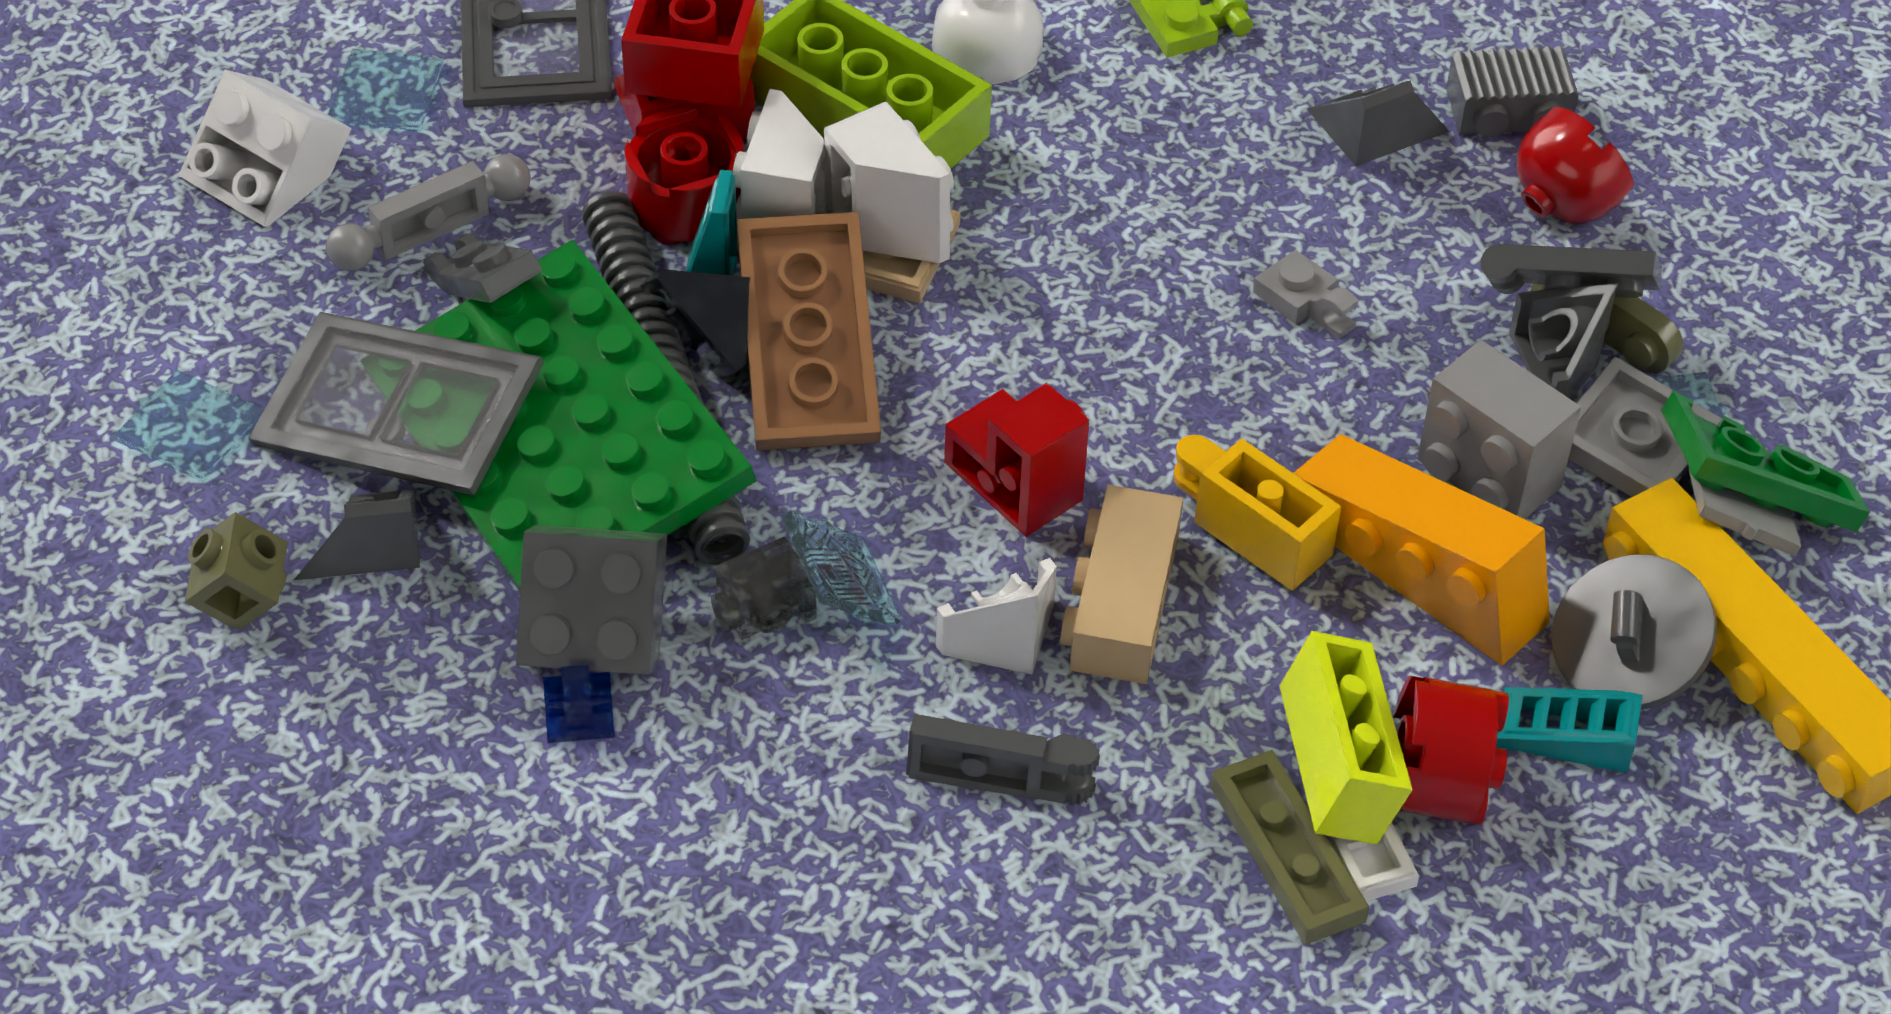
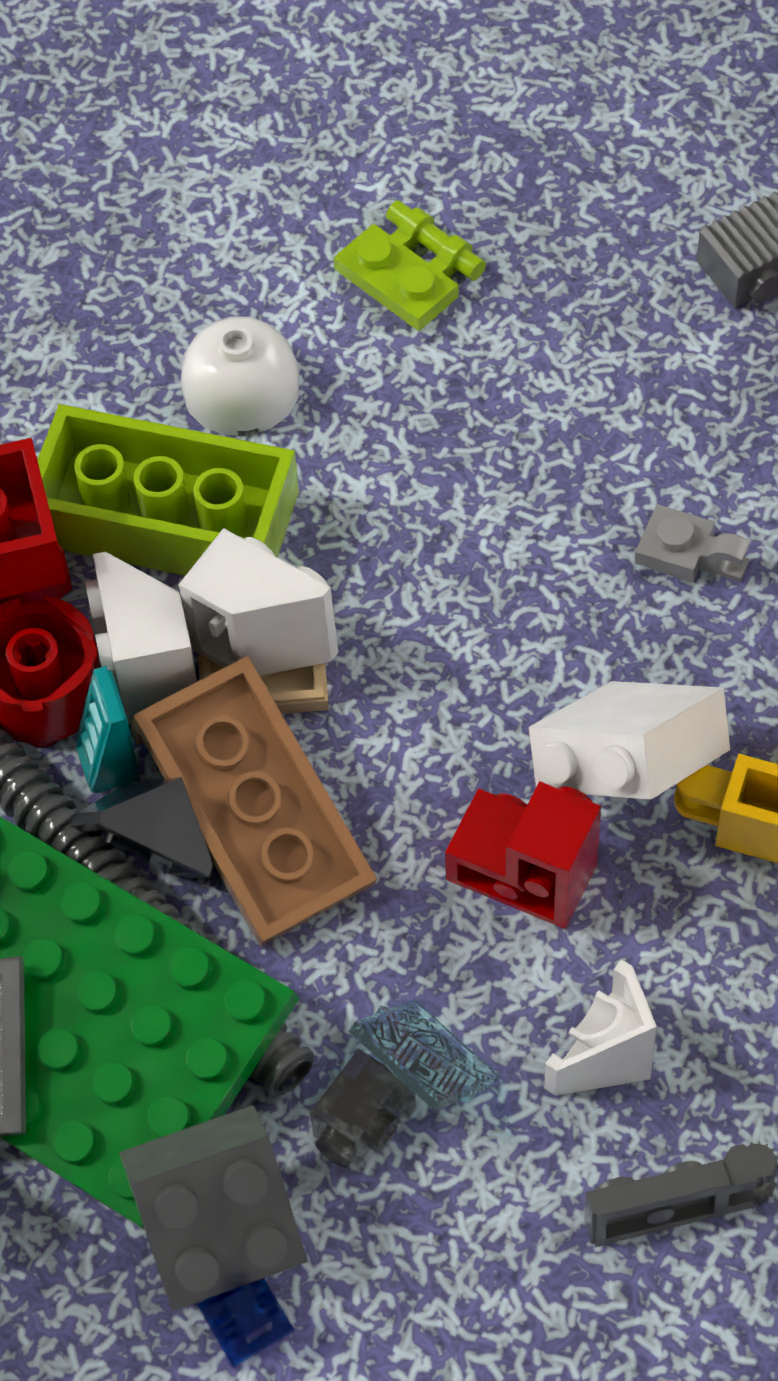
camera: 20 degrees left, 10 degrees up
(1122, 584) = (693, 948): tan brick -> none
(1153, 391) = (631, 739): none -> white brick
(1377, 121) = (652, 332): dark grey slope -> none

